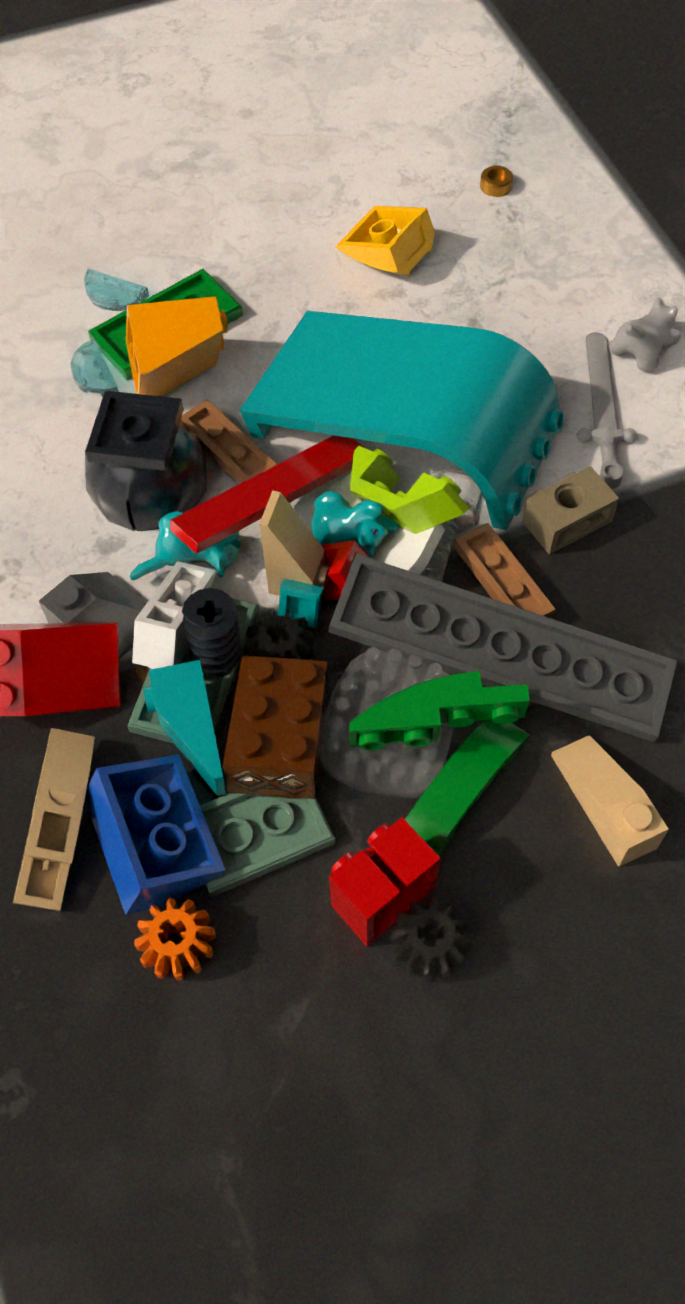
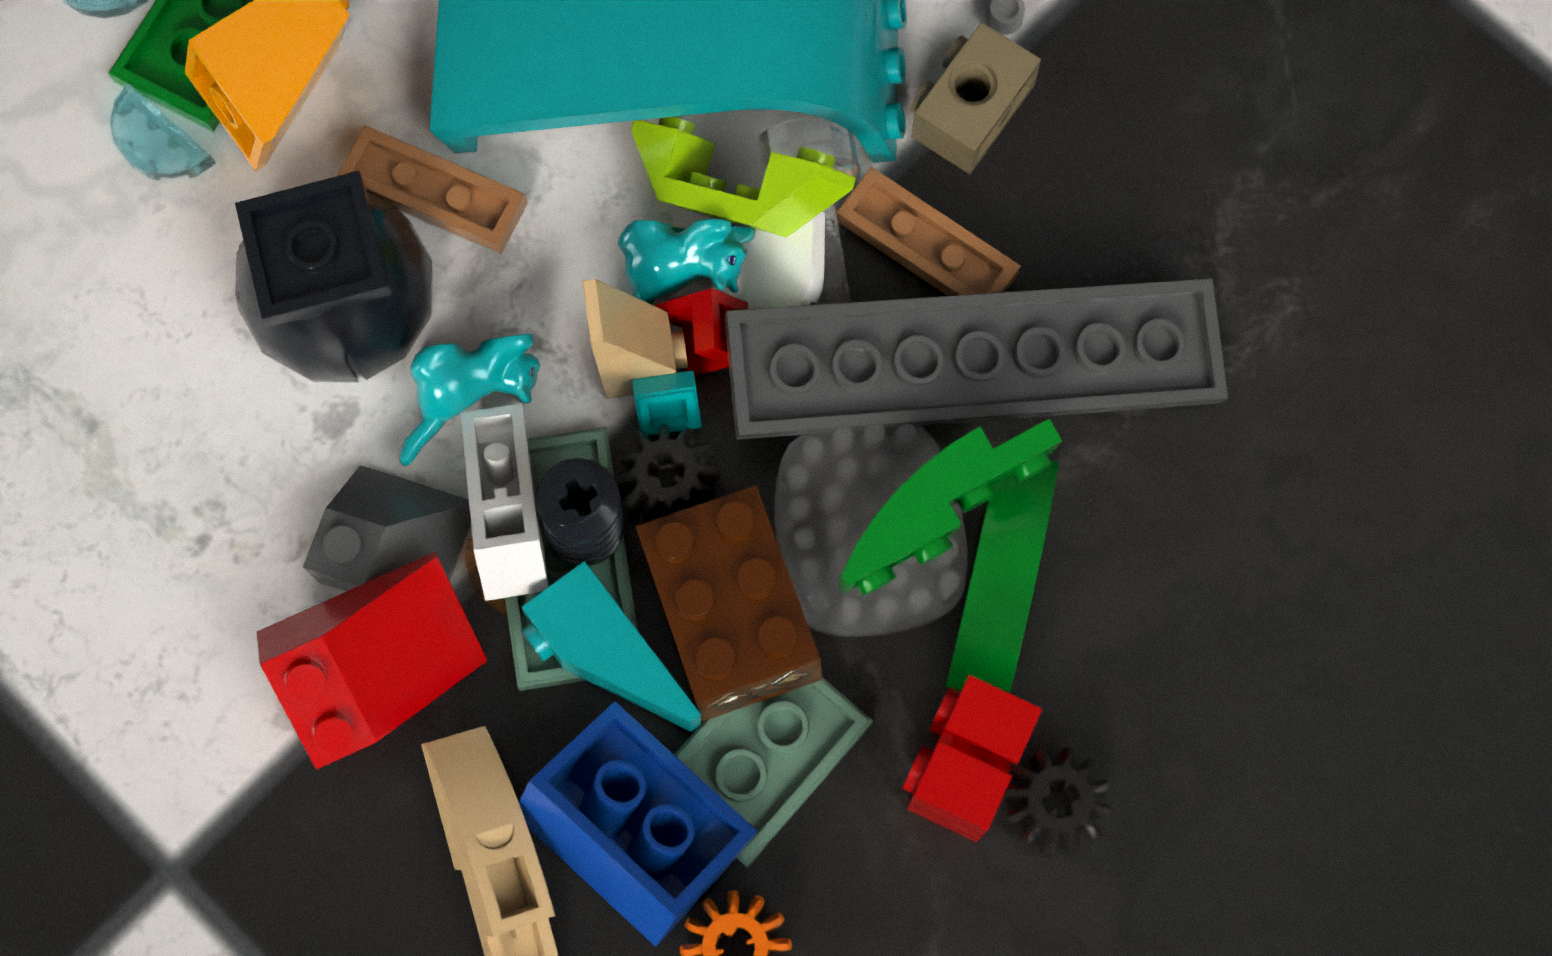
camera: 25 degrees left, 15 degrees up
(247, 501) = (537, 260): red tile -> none
(611, 800) = (1198, 510): tan slope -> none

